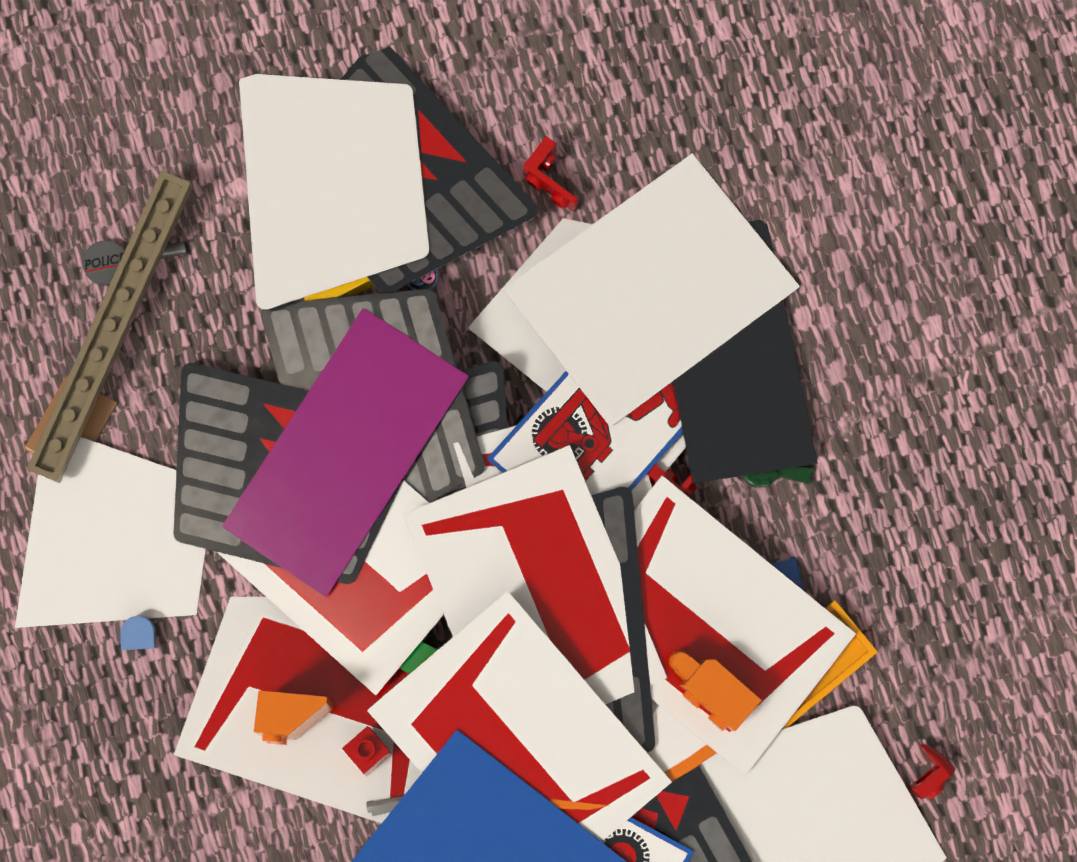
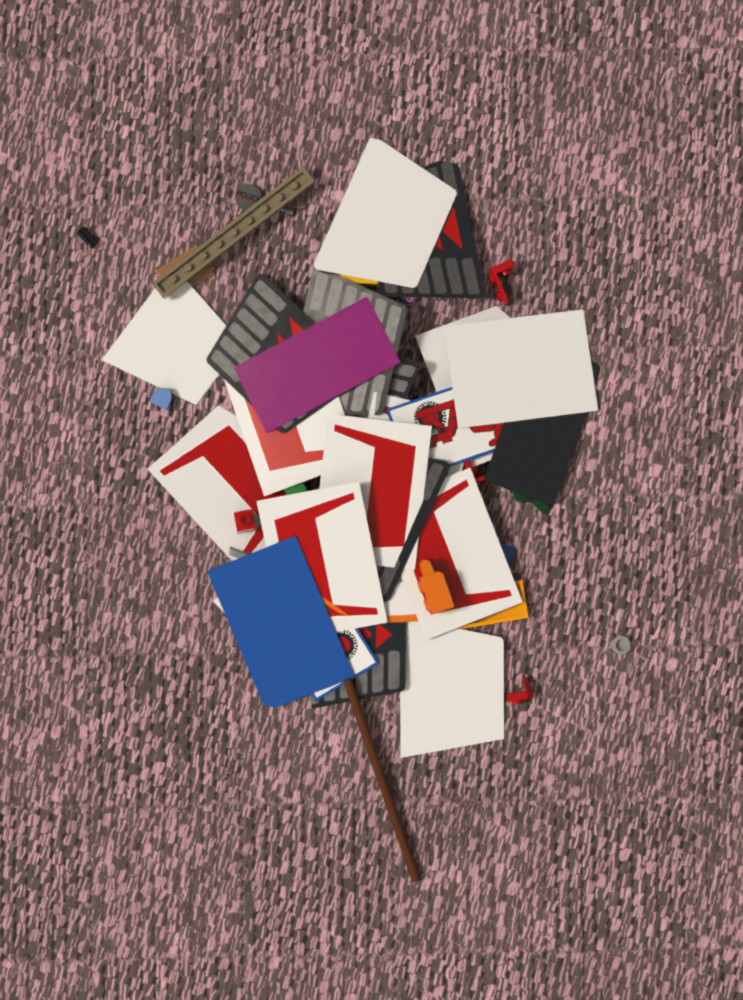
camera: 30 degrees right, 5 degrees up
(288, 715) = (216, 481): orange slope -> none
(1037, 614) = (621, 645): none -> light grey tile

